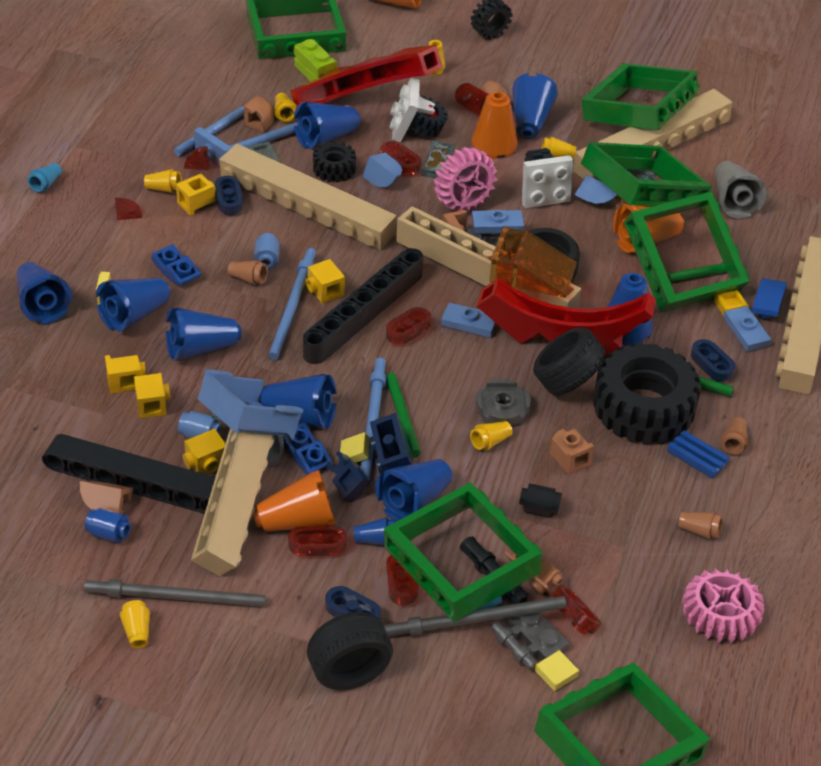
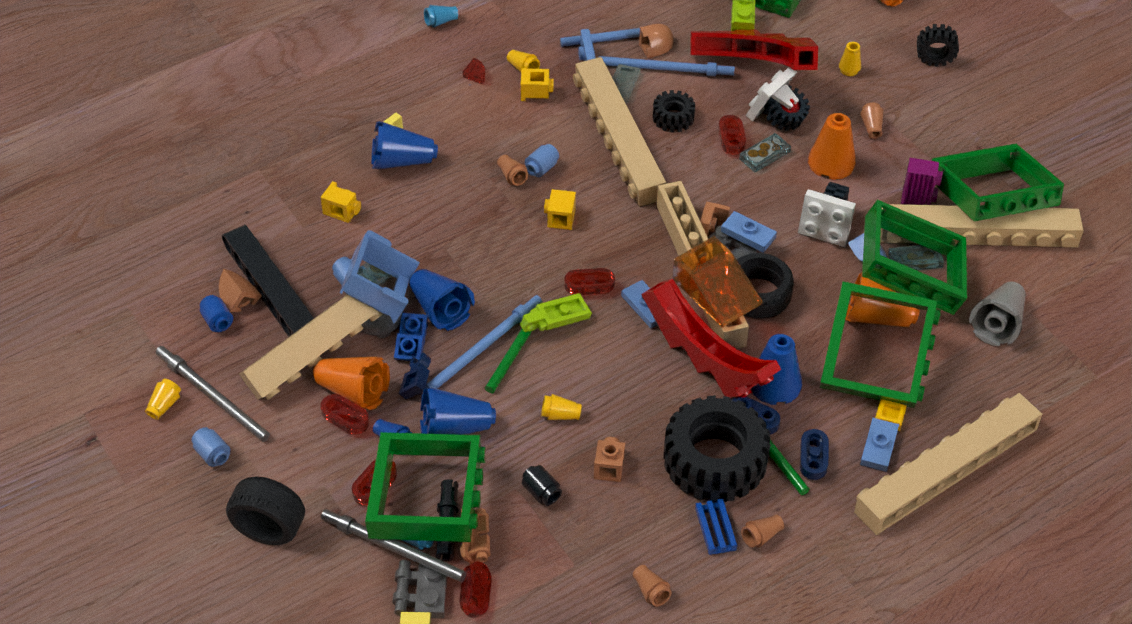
camera: 40 degrees right, 5 degrees up
(42, 293) = (340, 107): blue cone -> none
(151, 395) = (340, 231): yellow brick -> none
(175, 266) = (465, 136): blue slope -> none
(198, 159) = (568, 56): clear red tile -> none
(199, 333) = (420, 200): blue cone -> none
(204, 452) = (327, 294): yellow brick -> none
(228, 636) = (210, 447): none -> medium blue brick
(229, 195) = (561, 98): dark blue plate -> none
(284, 107) = (680, 45): yellow cone -> none
(292, 303) = (518, 216): medium blue bar -> none
(324, 123) = (697, 74): blue cone -> none
(351, 600) = (316, 483): dark blue plate -> none
(356, 447) = (445, 358): light yellow tile -> none
(362, 306) = (570, 245): black beam -> none
(382, 170) = (705, 137): medium blue brick -> none
(390, 443) = (467, 371): dark blue brick -> none
(411, 363) = (556, 313): none -> lime hinge
(465, 179) = (748, 172): bright pink gear -> none
(476, 100) = (850, 107): clear red plate -> none
(516, 401) = (598, 401): flat silver plate -> none
(532, 102) = (891, 142): blue cone -> none
(558, 148) = (873, 190): yellow cone -> none
(569, 361) = (673, 383): black tyre -> none
(587, 122) = (921, 182): none -> magenta brick
(697, 272) = (893, 371): green bar -> none
(769, 298) = (926, 427): blue slope -> none

